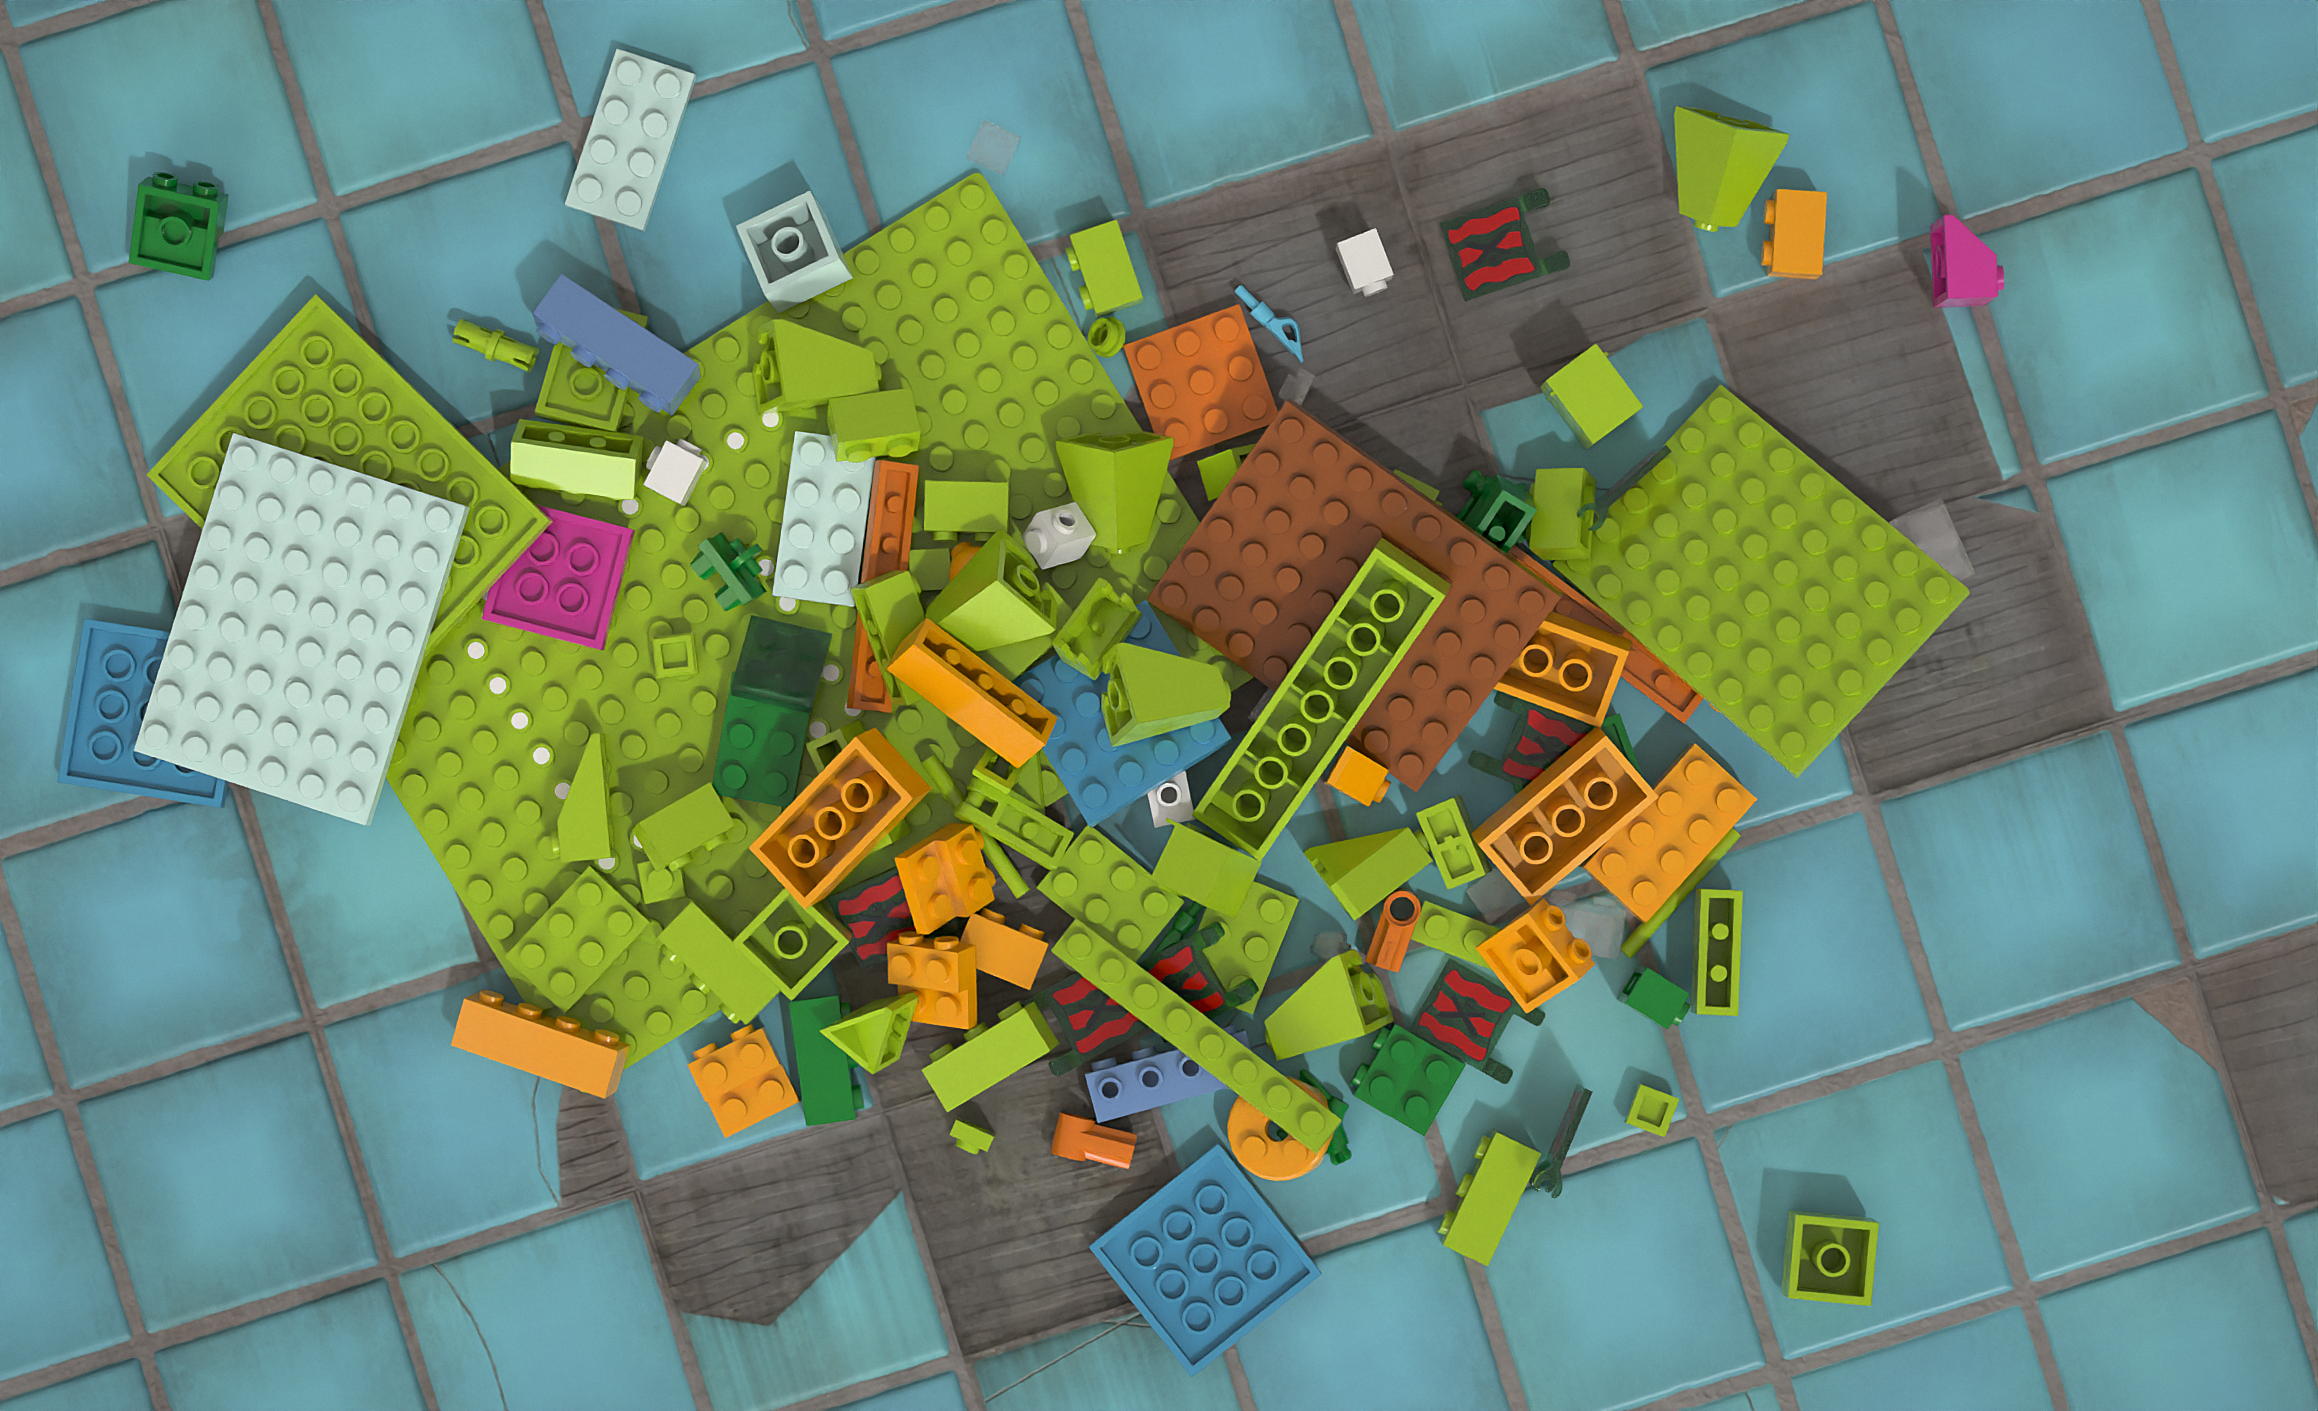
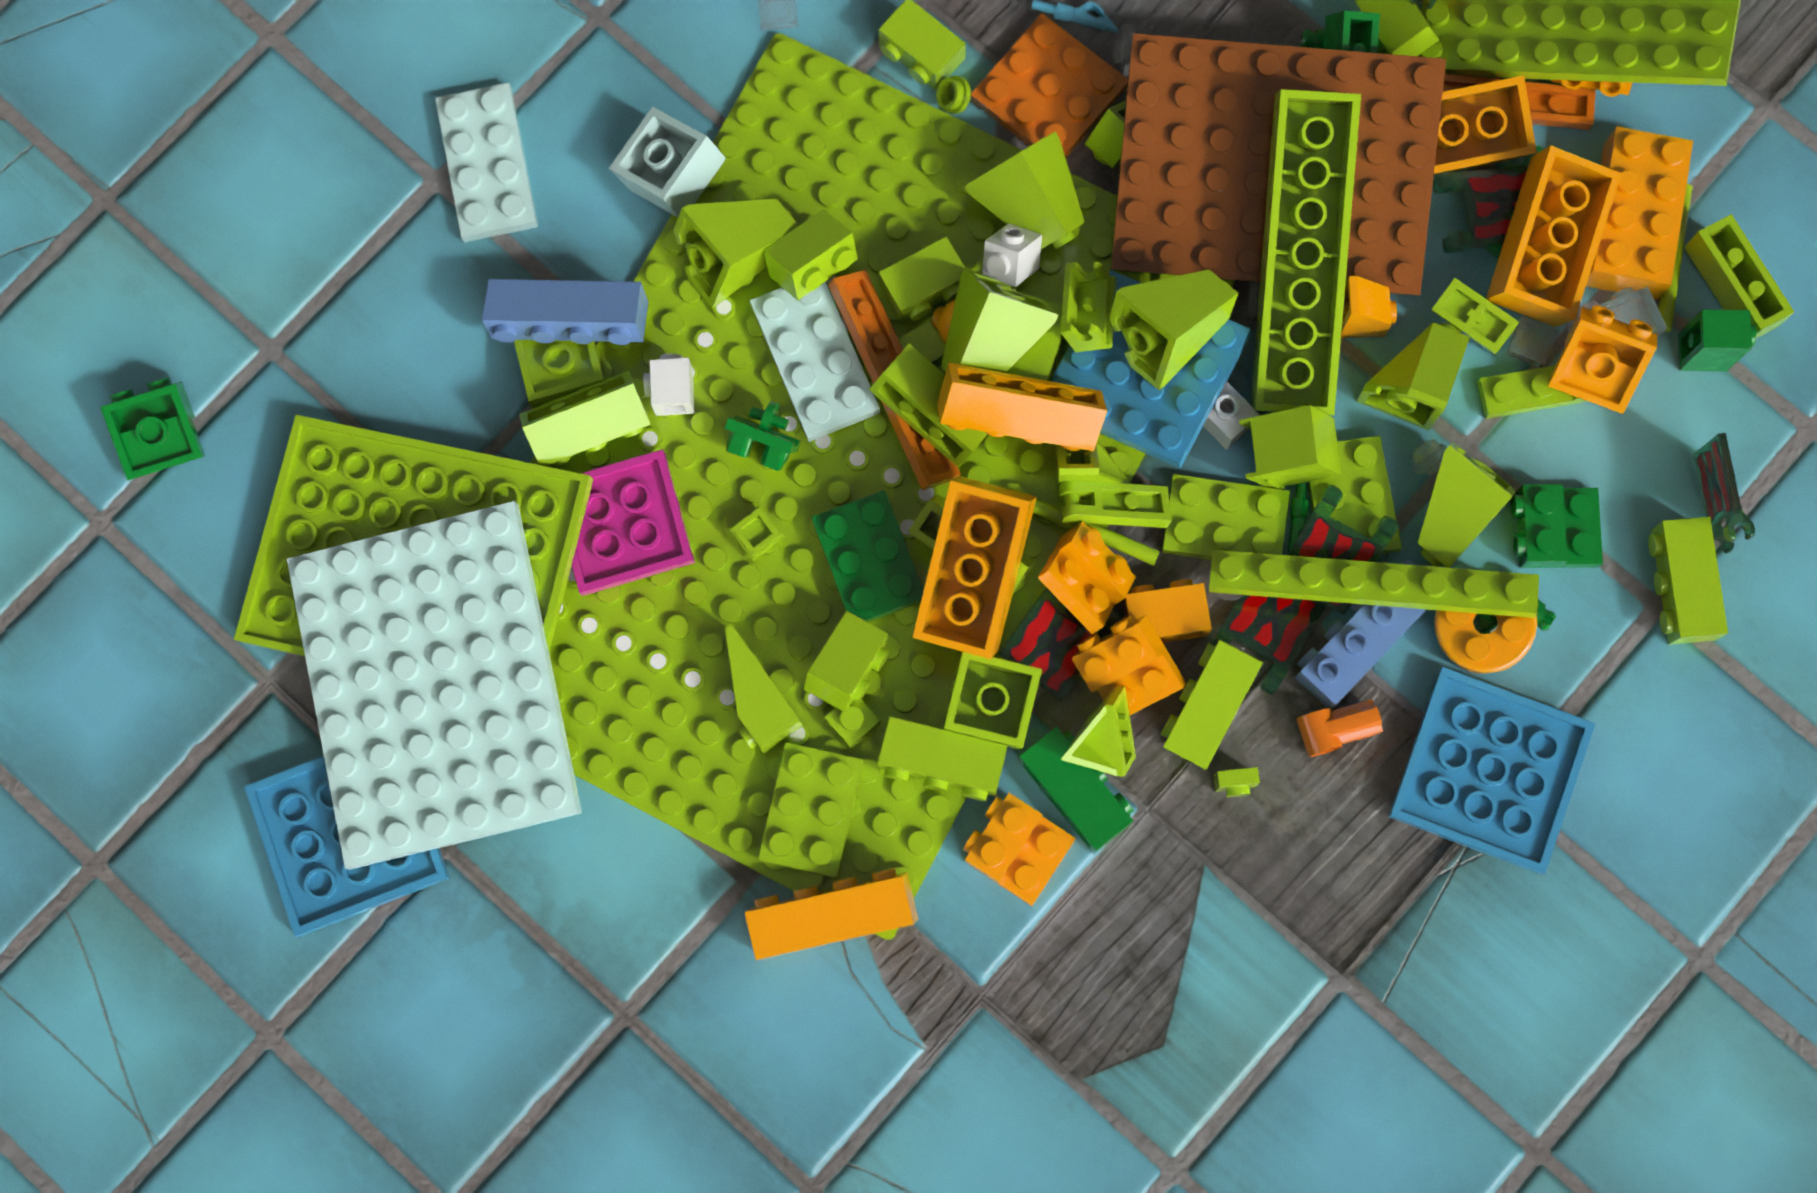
camera: 25 degrees left, 10 degrees down
(495, 345) = (467, 376): lime pin -> none
(781, 664) = (848, 486): clear green plate -> none
(1393, 933) = (1473, 417): orange piece -> none
(1468, 1017) = (1577, 449): flag -> none
(1651, 1110) = (1769, 436): lime plate -> none

